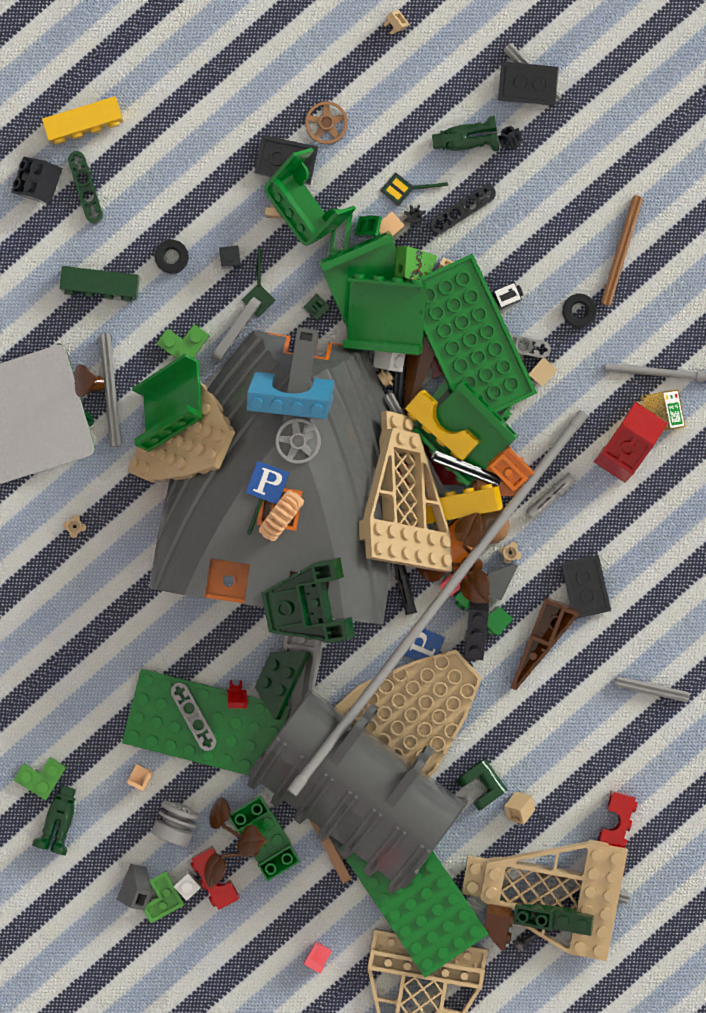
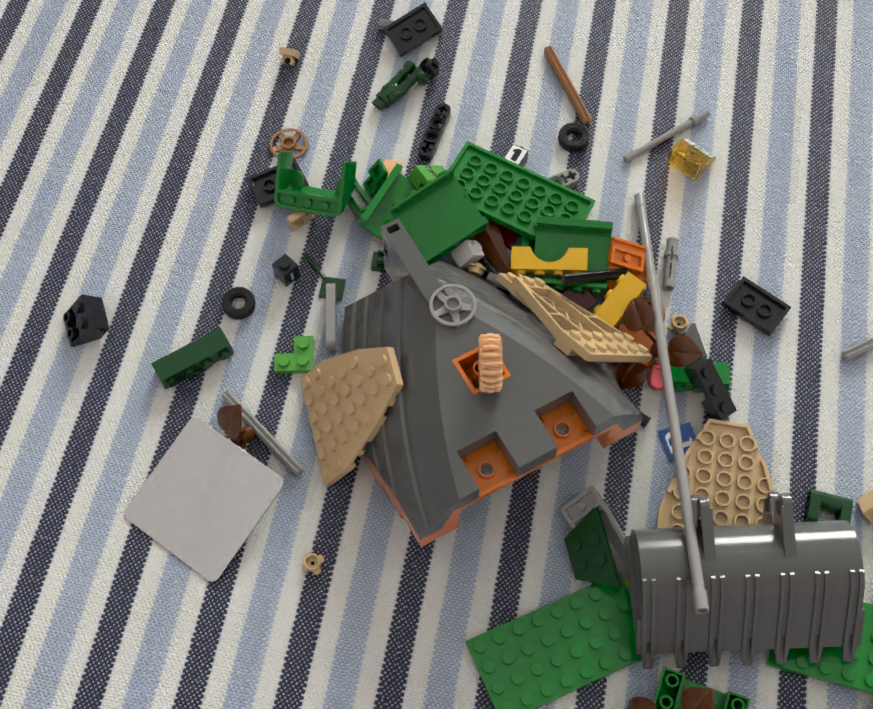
camera: 40 degrees left, 25 degrees down
(82, 120) = (95, 257): yellow brick -> none
(83, 188) = (131, 302): dark green beam -> none
(170, 401) = (318, 391): green panel -> none
(190, 718) = (547, 640): light grey beam -> none
(236, 696) = (568, 597): red plate -> none
(267, 484) = (456, 356): blue piece -> none
(302, 605) = (567, 429): dark green wedge -> none
(312, 403) = (416, 281): dark azure arch -> none
(334, 856) = (765, 671): medium nougat beam -> none
(398, 188) = (378, 150): piece -> none
(412, 211) = (404, 154): black gear -> none
(542, 372) = (586, 185): tan panel -> none
(549, 627) = (760, 356): reddish brown wedge -> none
(631, 442) = (694, 184): red slope -> none

